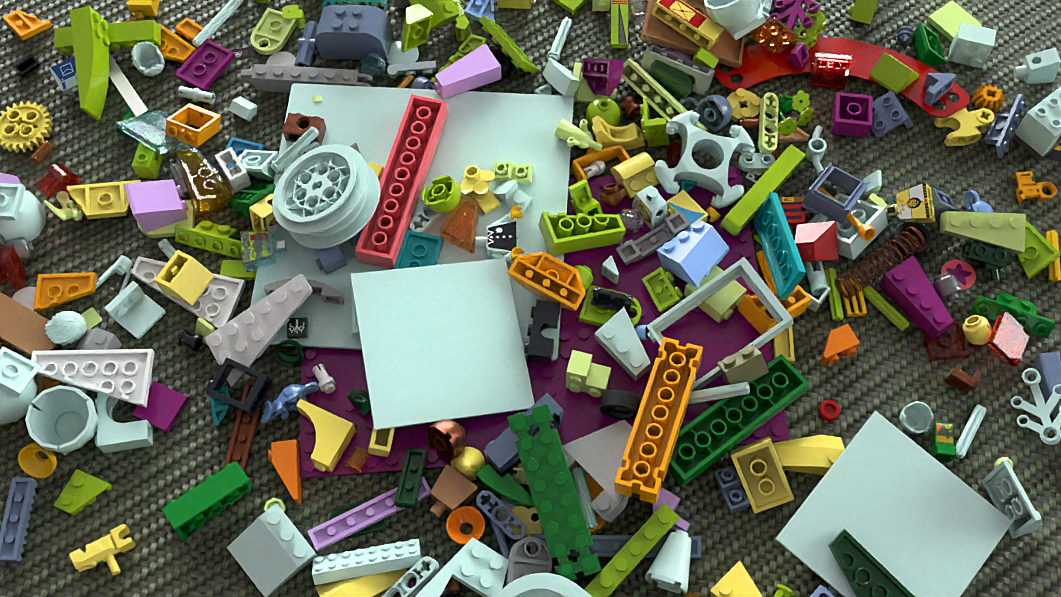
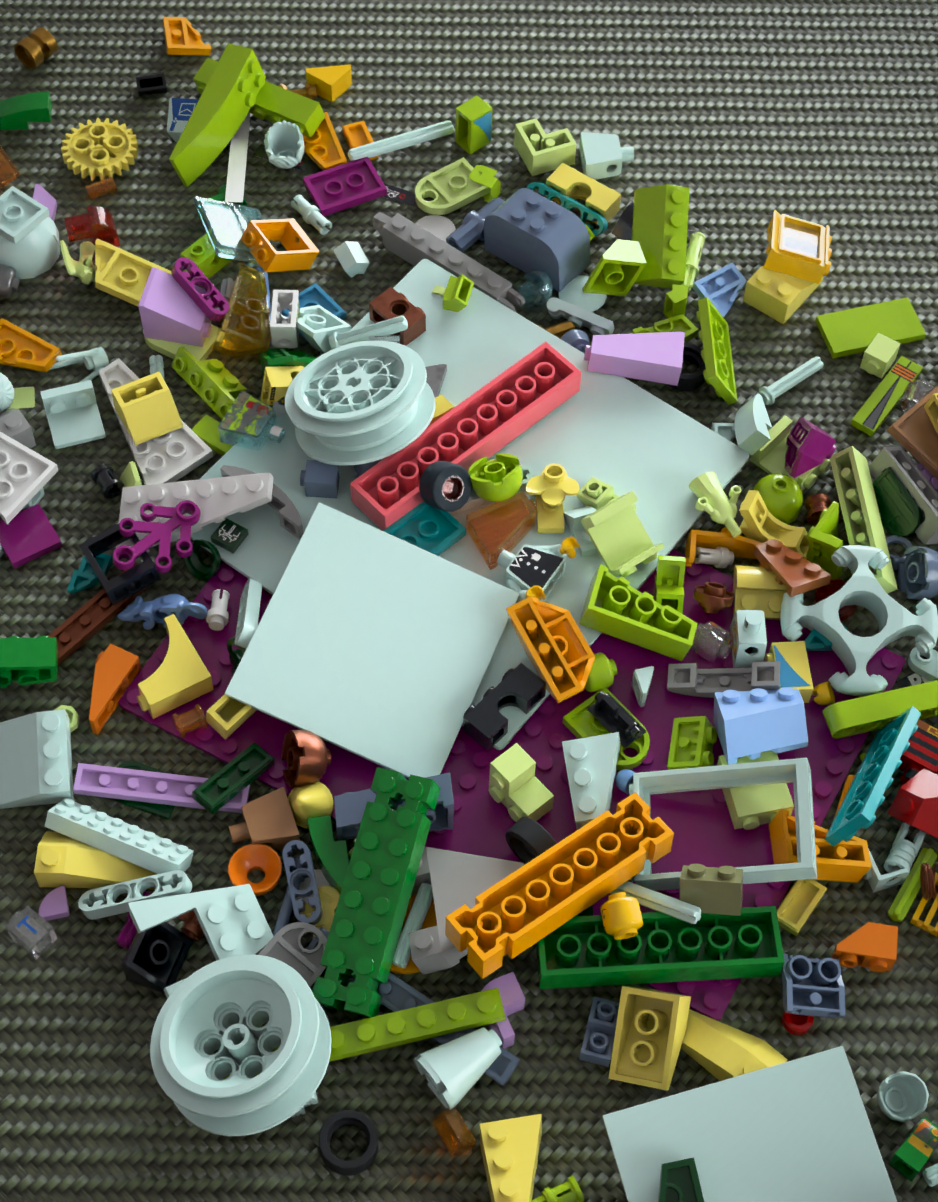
camera: 30 degrees right, 5 degrees down
(169, 188) = (199, 278): none -> magenta beam
(255, 352) = (158, 532): none -> magenta plant
(331, 94) = (457, 293): none -> lime piece
(348, 370) = (248, 612): none -> light aqua beam
(415, 218) = (445, 486): none -> black wheel
(538, 188) = (620, 536): none -> yellowish green panel
(648, 151) = (790, 567): none -> dark orange wing
(706, 415) = (621, 916): none -> yellow head
(828, 387) = (813, 987): none -> sand blue slope

